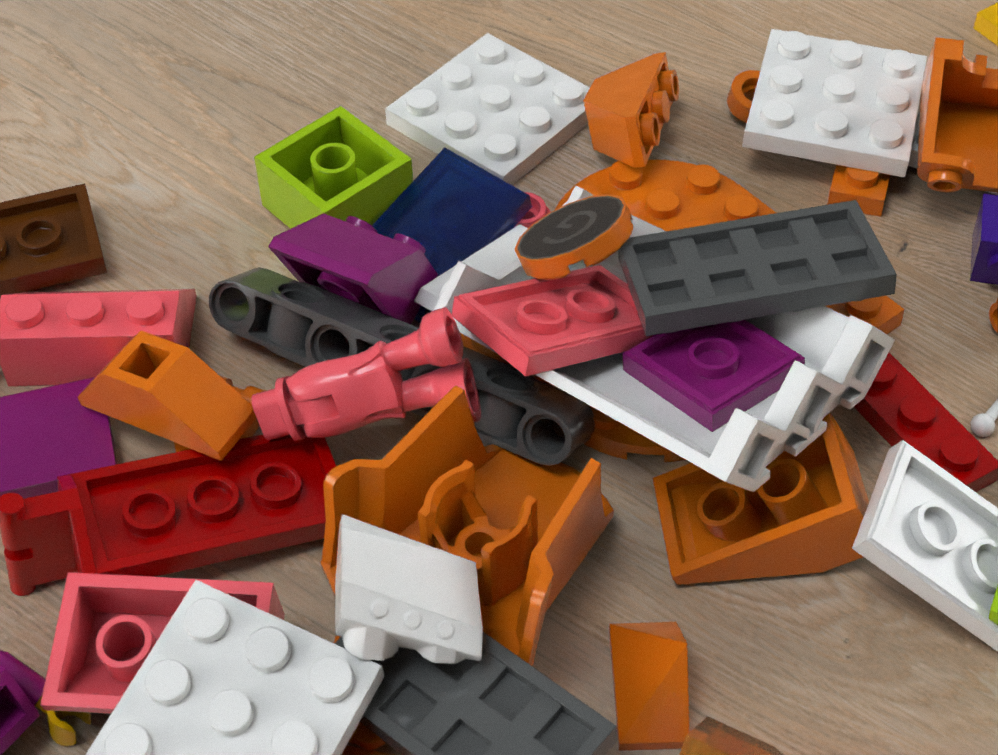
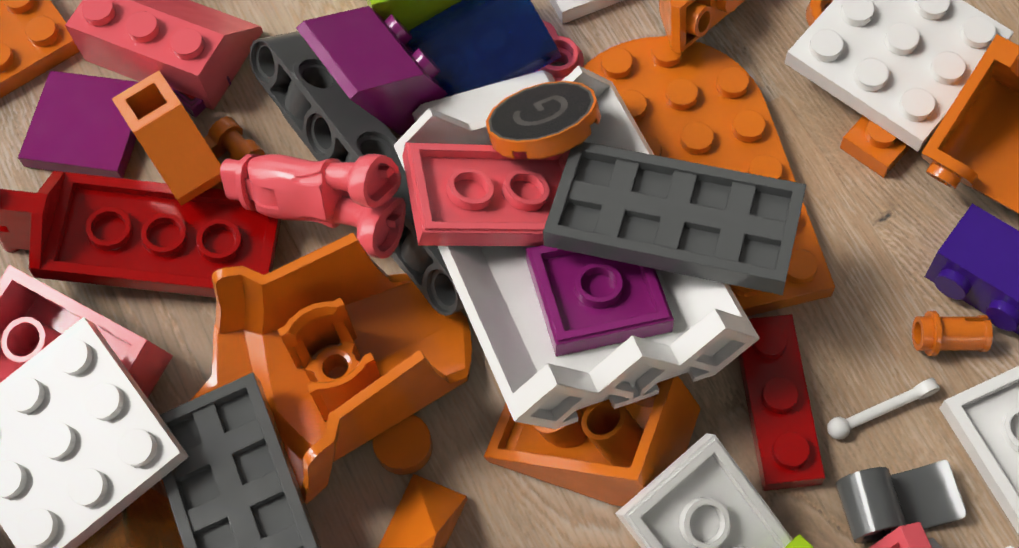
camera: 30 degrees right, 15 degrees up
(404, 596) = (228, 399): white slope -> none
(584, 603) = (404, 446): none -> orange tile

